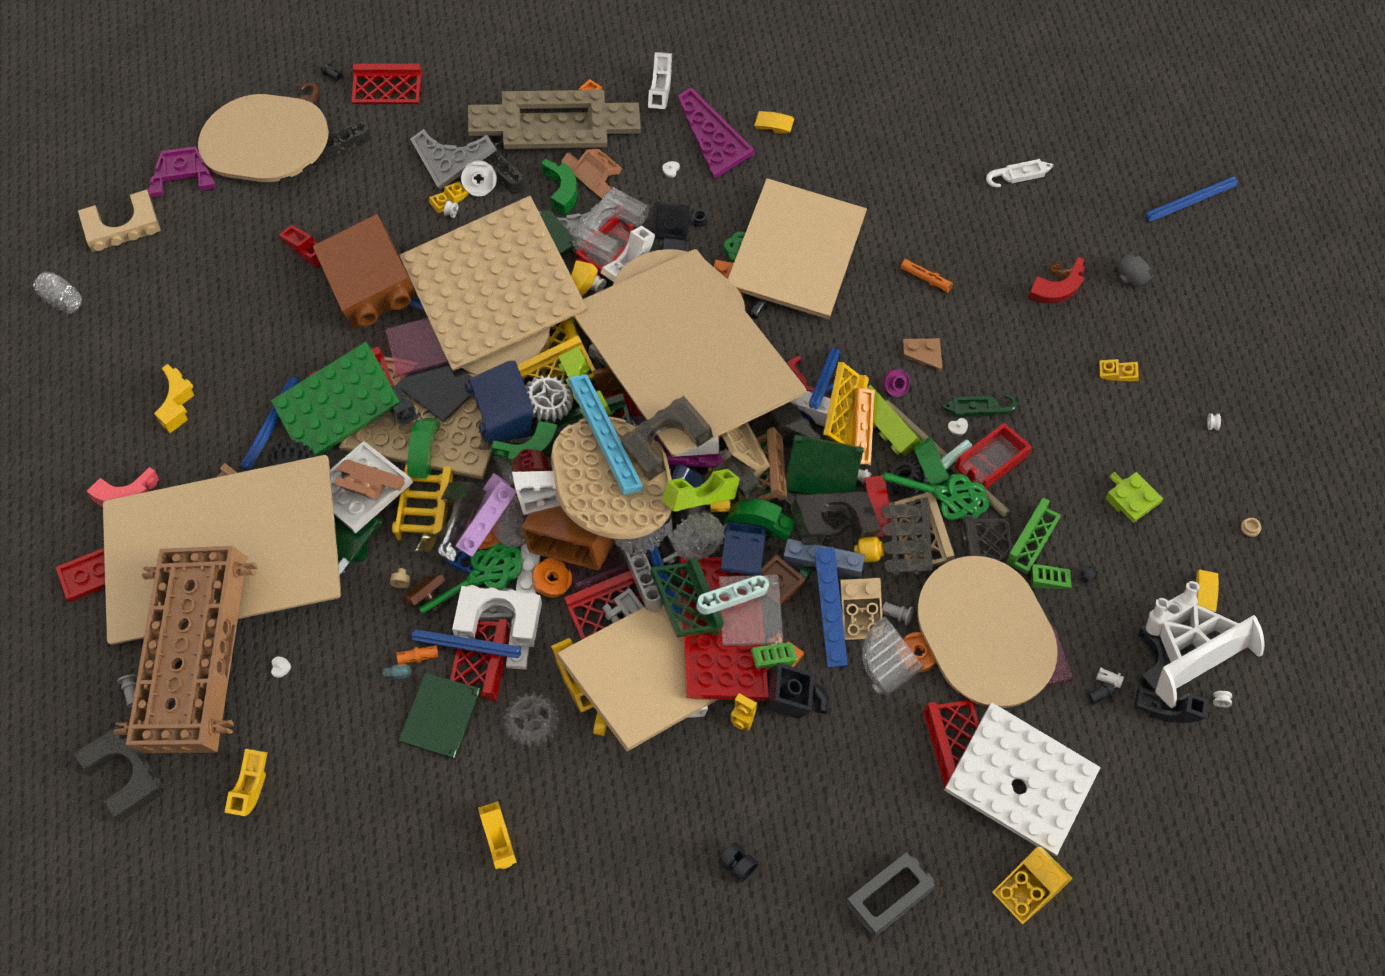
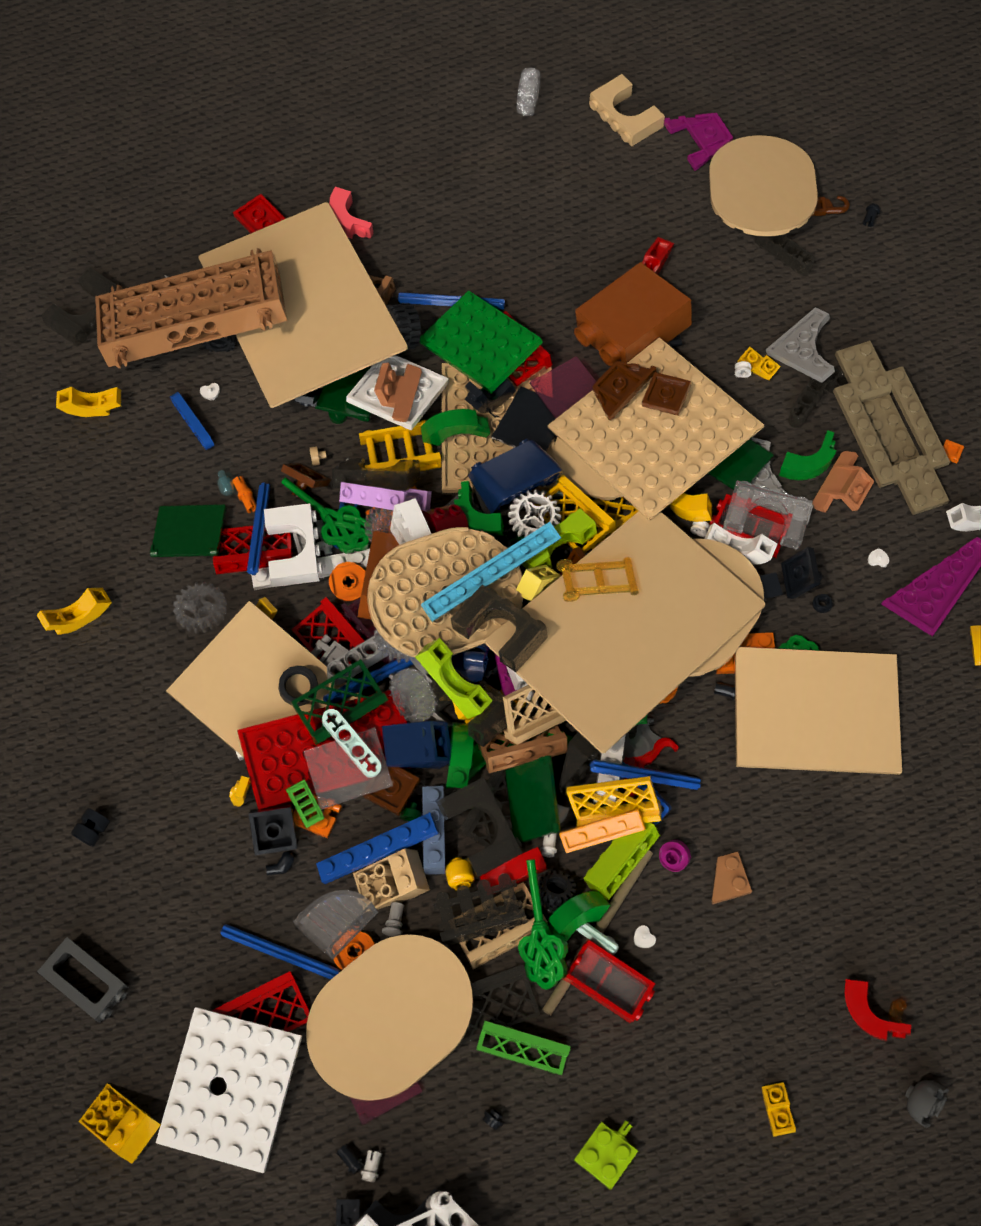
camera: 75 degrees right, 5 degrees up
(172, 412) = (461, 219): yellow arch -> none
(310, 688) = (192, 421): none -> blue beam
(390, 72) = (890, 264): red fence -> none
(442, 295) = (620, 385): none -> reddish brown wing
(467, 259) = (666, 393): none -> reddish brown plate
(471, 184) = (795, 382): white plate -> none
(623, 405) = (536, 581): none -> light yellow brick
(647, 378) = (573, 594): none -> clear yellow piece
(653, 646) = (302, 670): none -> black tyre
(903, 716) = (279, 952): none -> blue axle
(933, 279) = (828, 881): orange pin -> none
(978, 406) = (676, 954): dark green plate -> none
(1036, 582) = (473, 1058): bright green slope -> none

